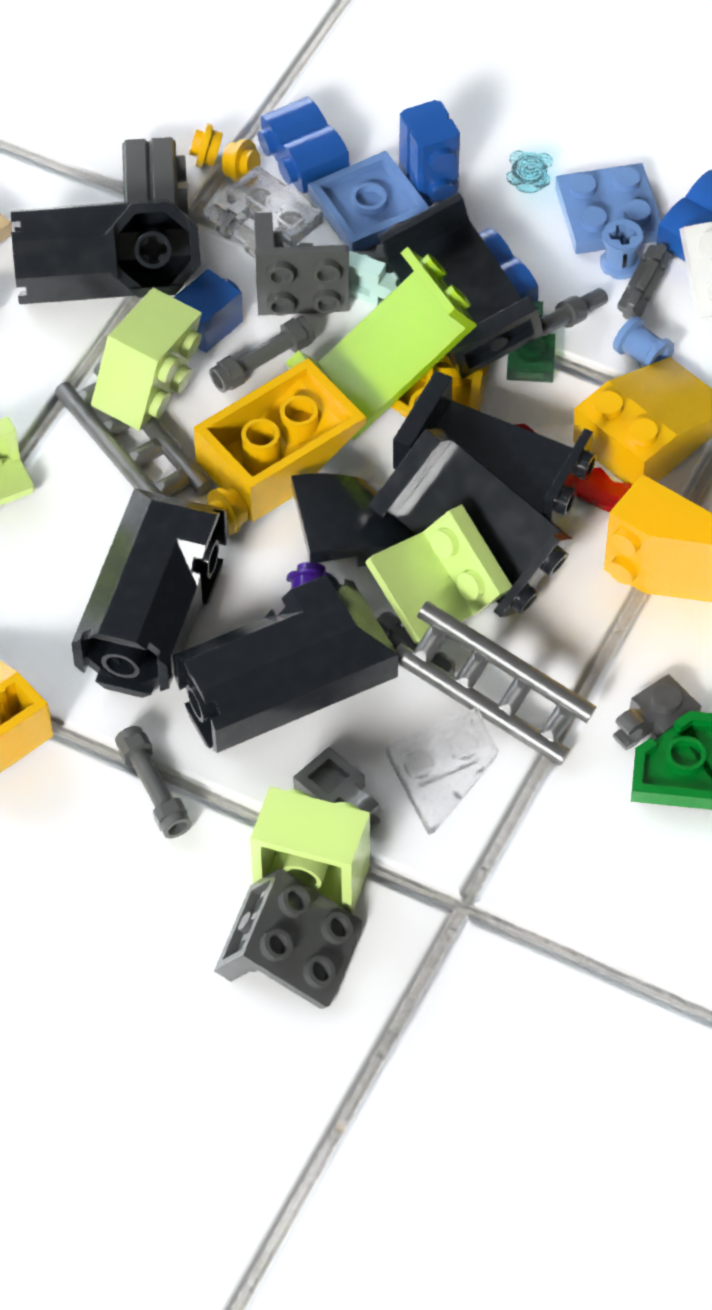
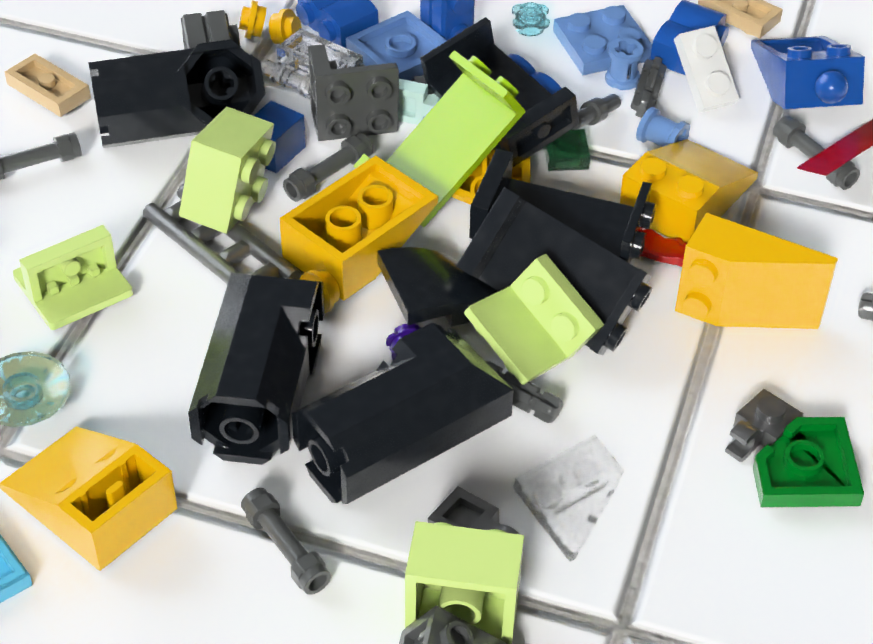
camera: 10 degrees left, 10 degrees down
(525, 678) = (636, 401): flat silver bar -> none

